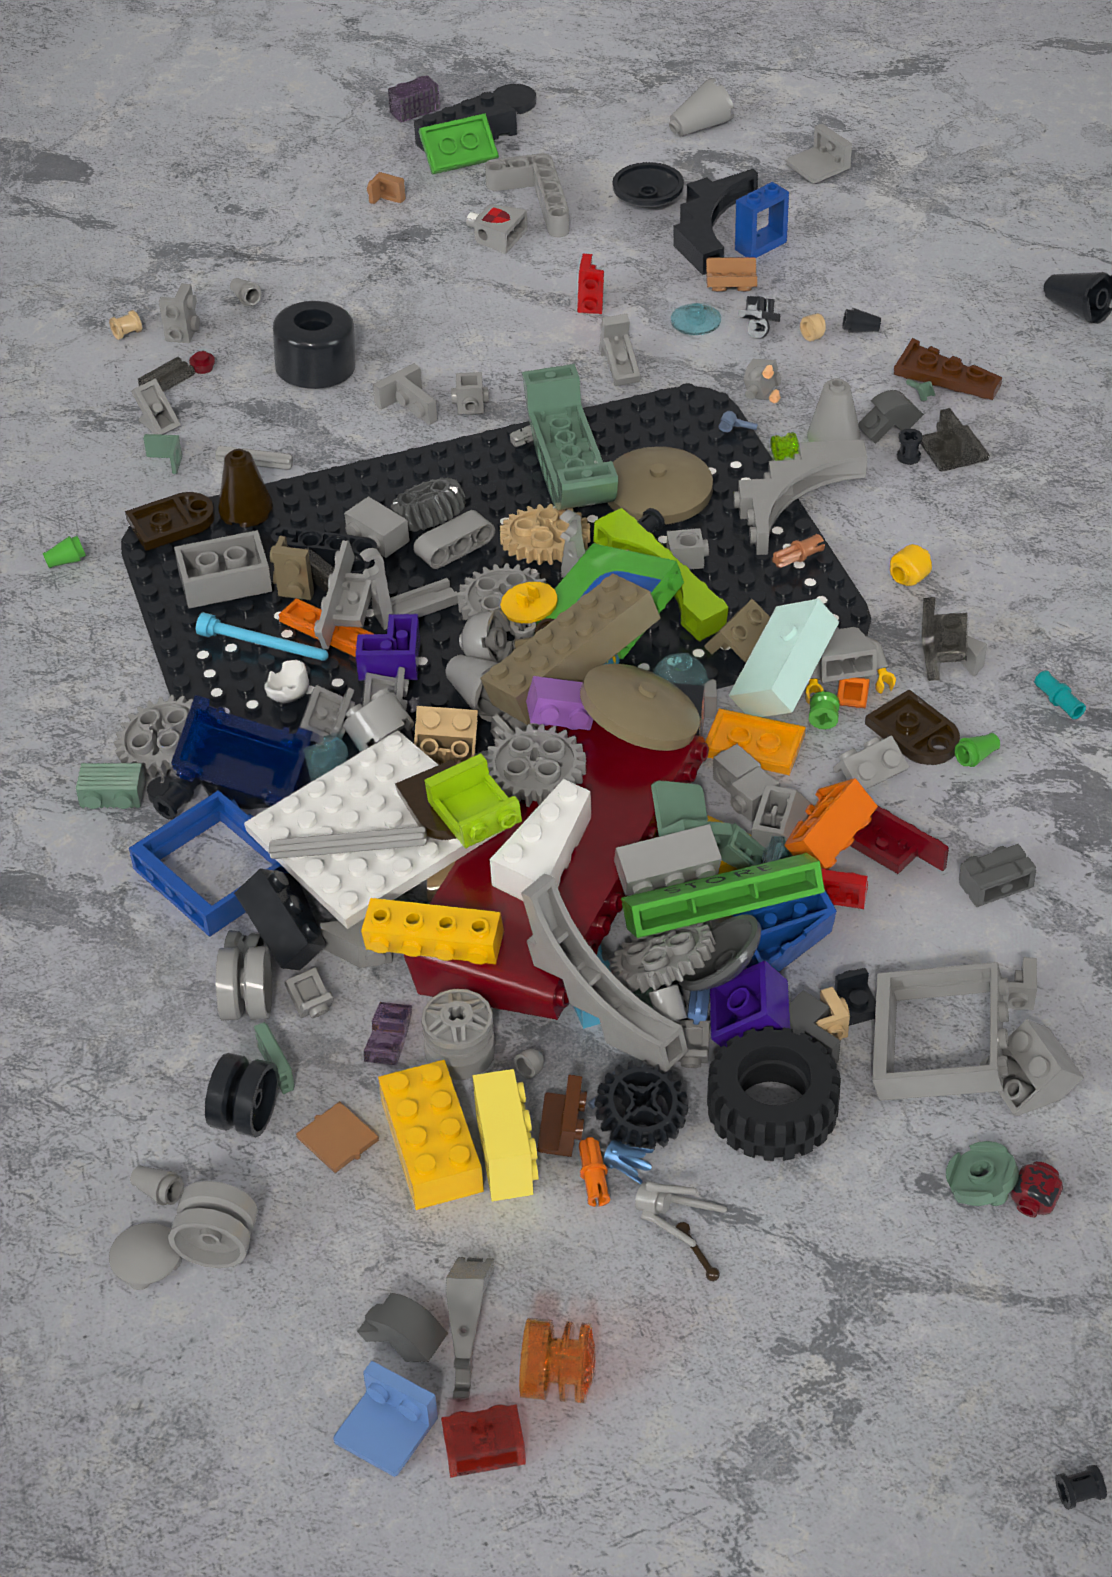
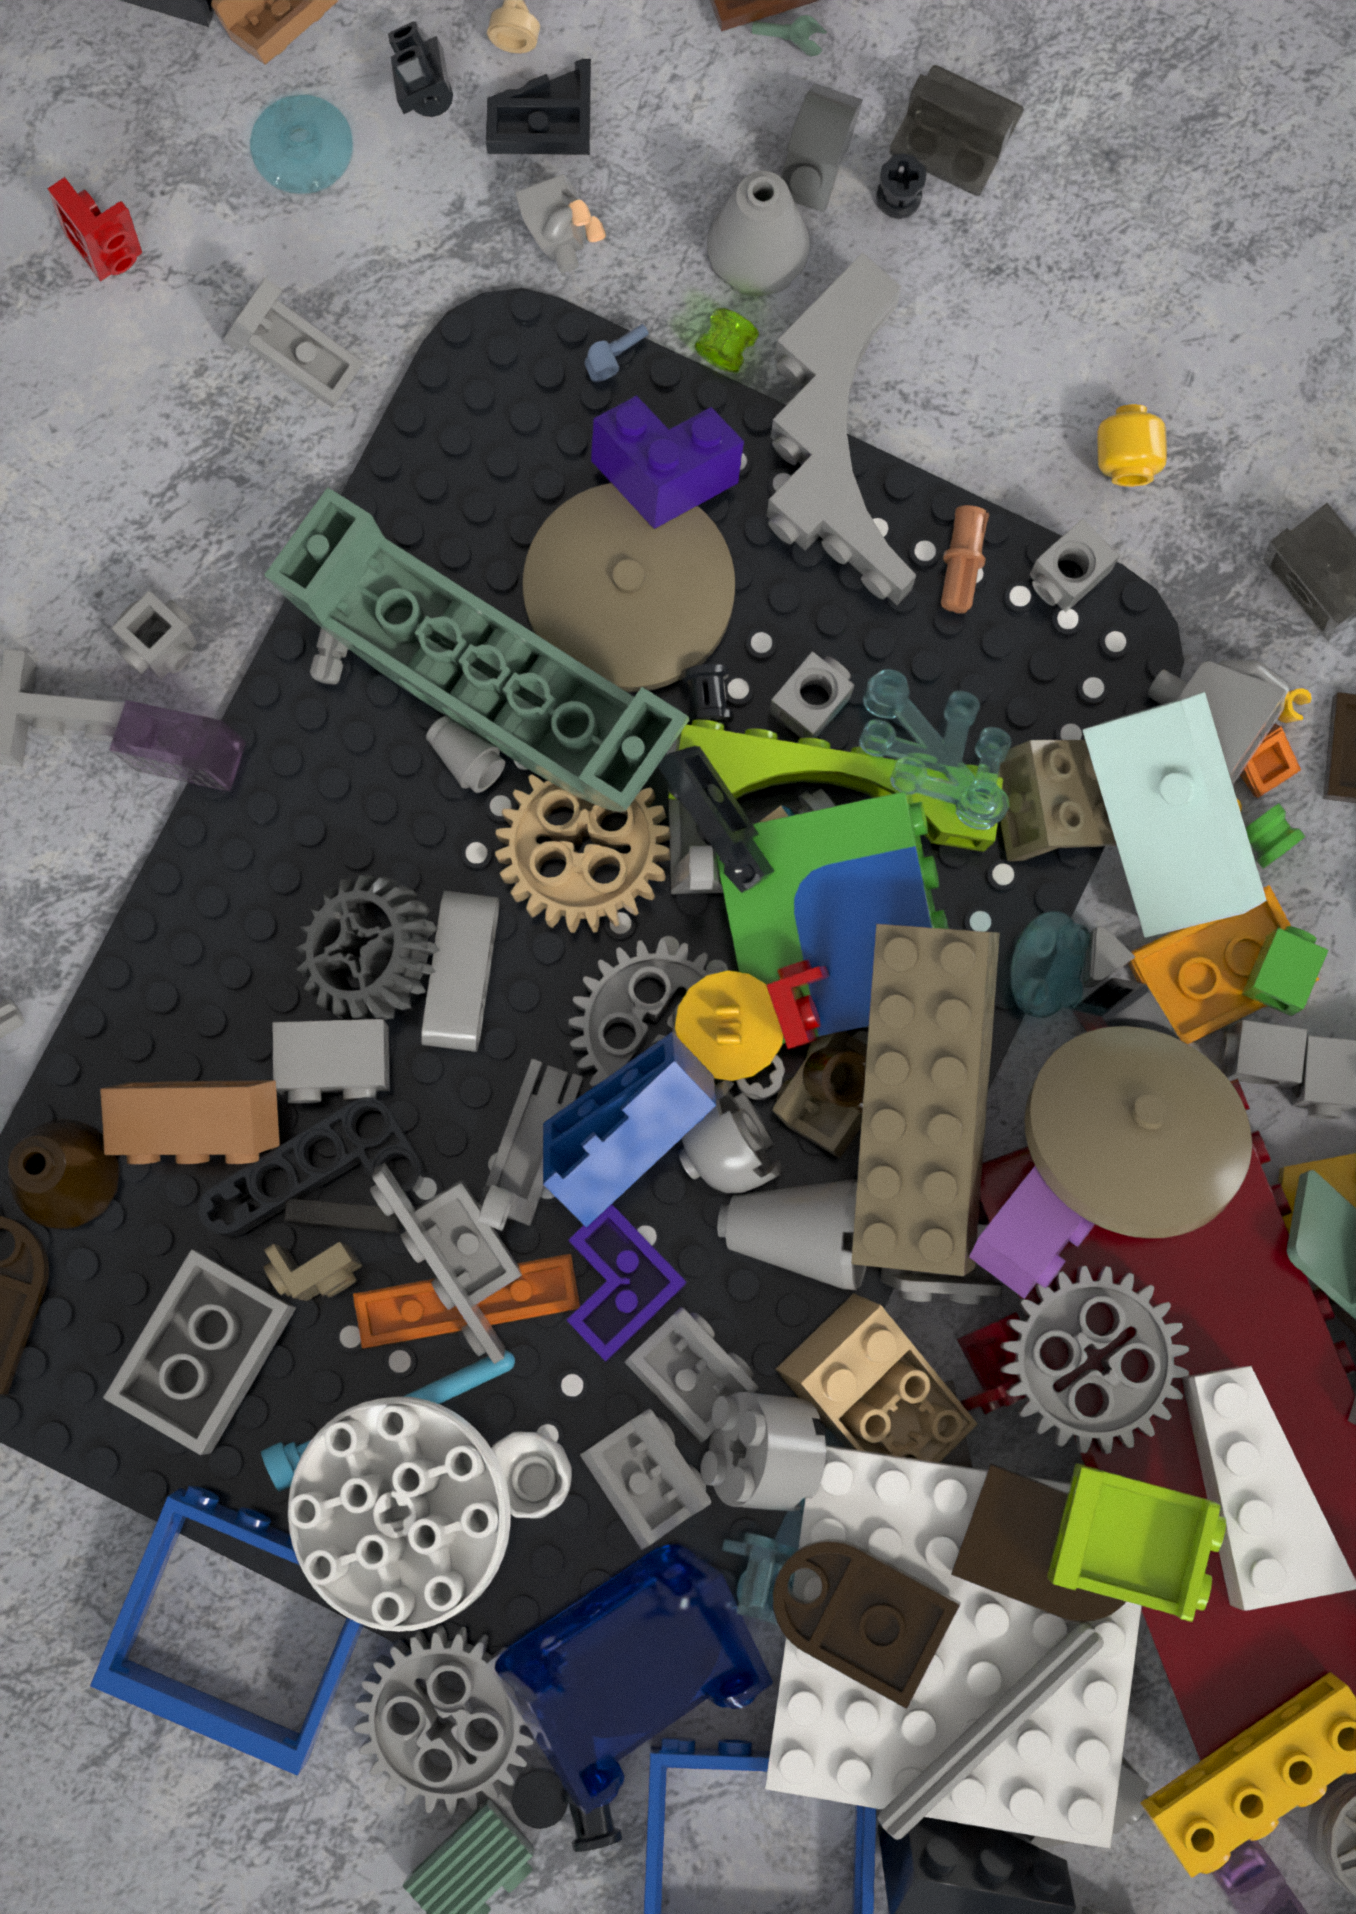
camera: 50 degrees left, 35 degrees up
(120, 623) = (189, 1705): none -> blue window
(226, 639) = (399, 1513): none -> white bracket
(306, 503) = (190, 1120): none -> medium nougat brick
(347, 785) = (868, 1618): none -> dark brown tile
(438, 422) = (177, 745): none -> clear purple brick
(451, 597) = (624, 1127): none -> wedge
(536, 488) = (467, 756): none -> light grey cone
(558, 597) = (794, 1012): none -> red bracket
(598, 528) = (717, 816): none -> black hinge
(708, 596) = (977, 798): none -> clear light blue plant
(716, 452) = (665, 468): none -> dark purple brick
(774, 743) = (1286, 970): none -> bright green brick
(794, 355) = (543, 115): none -> black wing
(839, 577) = (1085, 548): none -> light grey brick

